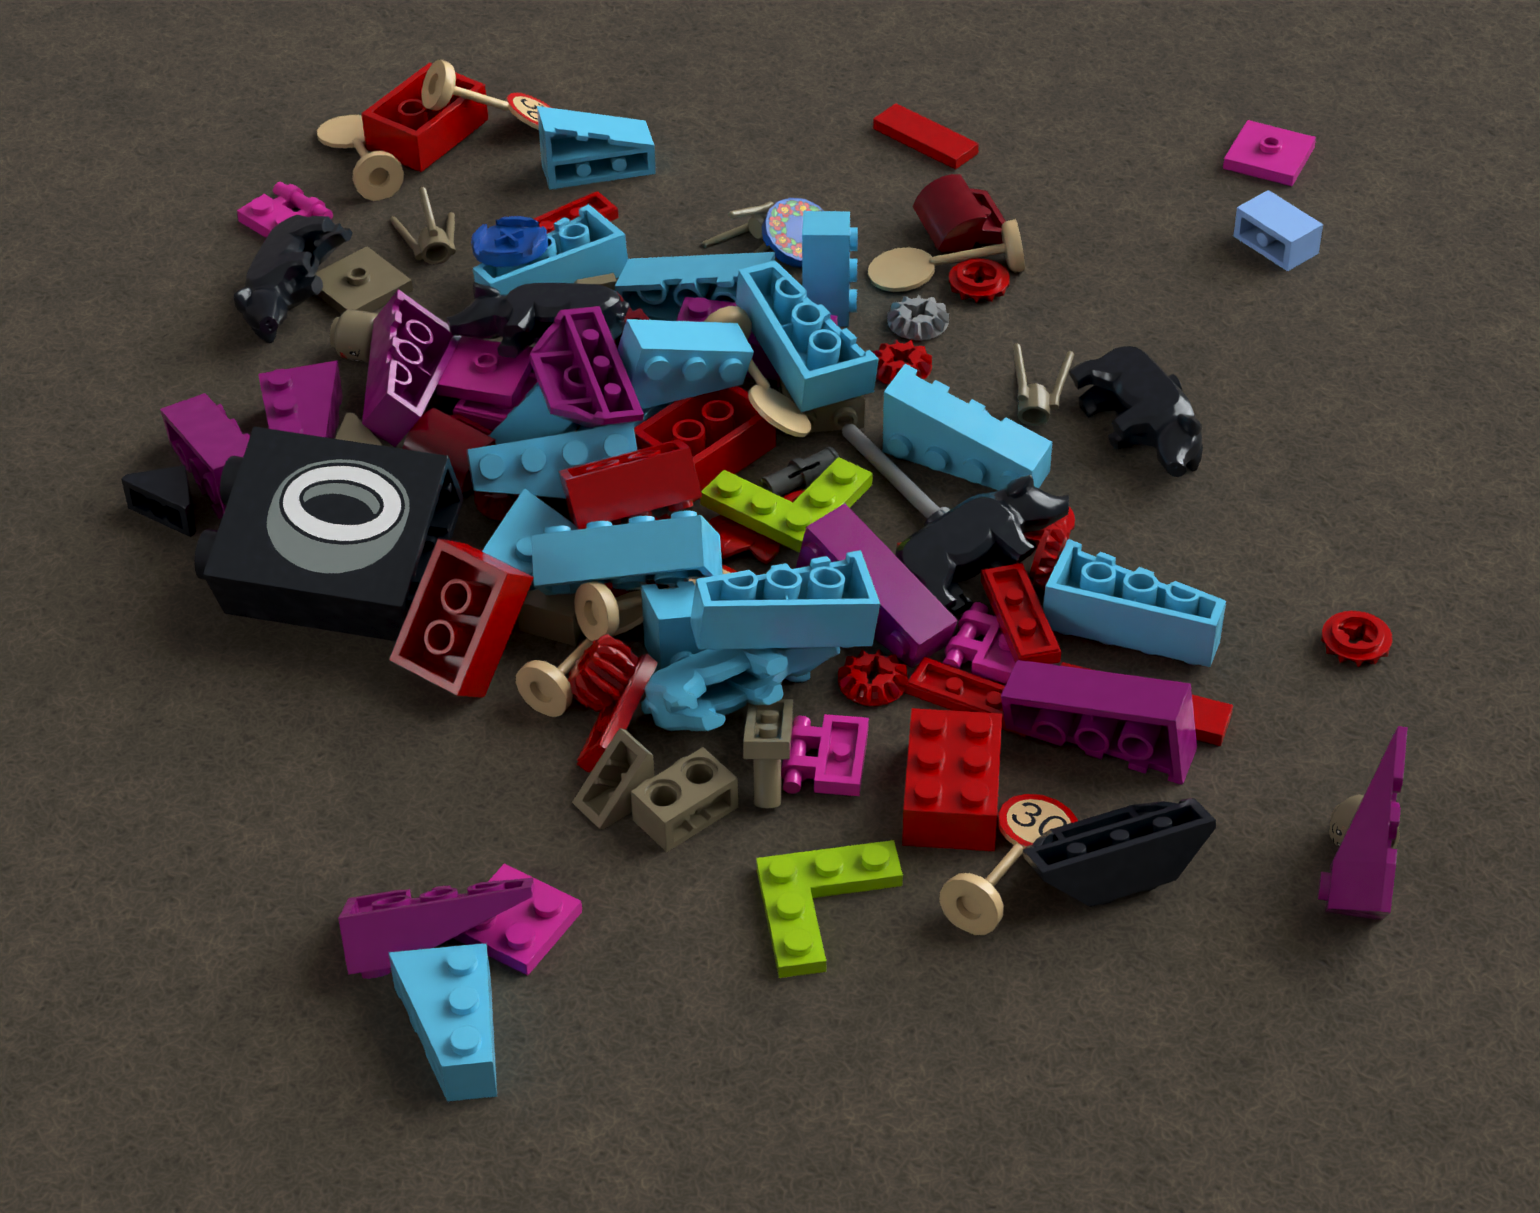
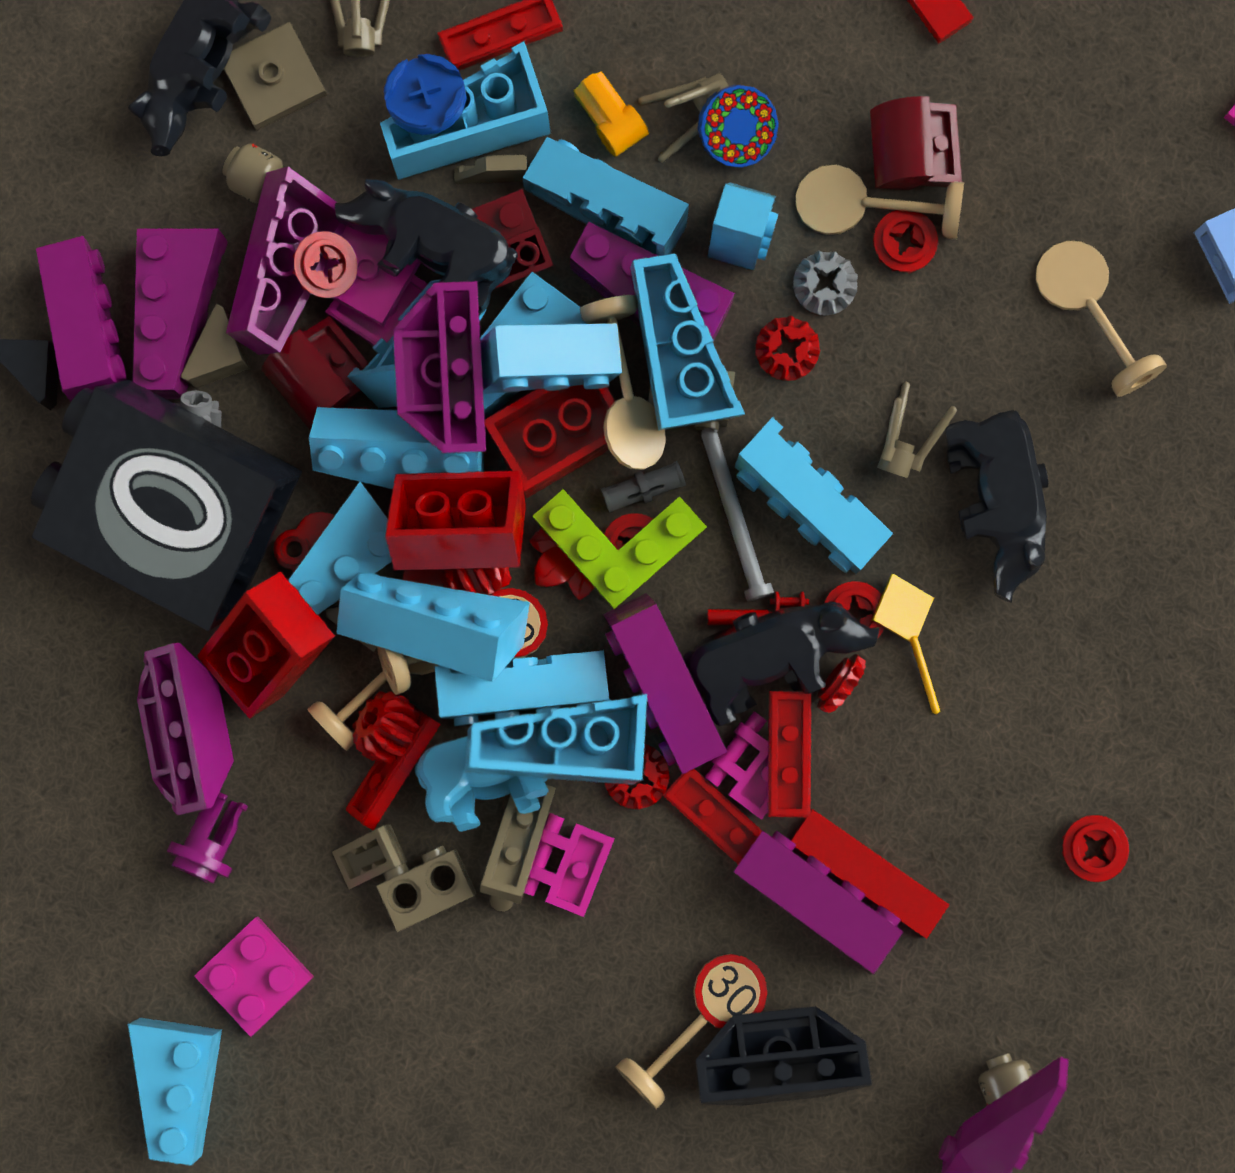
camera: 15 degrees right, 40 degrees up
(381, 715) = (183, 728): none -> magenta wedge
(397, 922) = (162, 977): magenta wedge -> none
(434, 813) = (204, 856): none -> magenta piece
(452, 345) = (339, 276): none -> gear
(670, 242) = (615, 122): none -> light orange piece
(793, 881) = (505, 995): lime plate -> none
(952, 779) = (667, 935): red brick -> none
(1096, 512) = (903, 613): none -> yellow piece
(1131, 609) = (891, 767): medium azure wedge -> none
(1150, 275) = (1075, 278): none -> tan piece

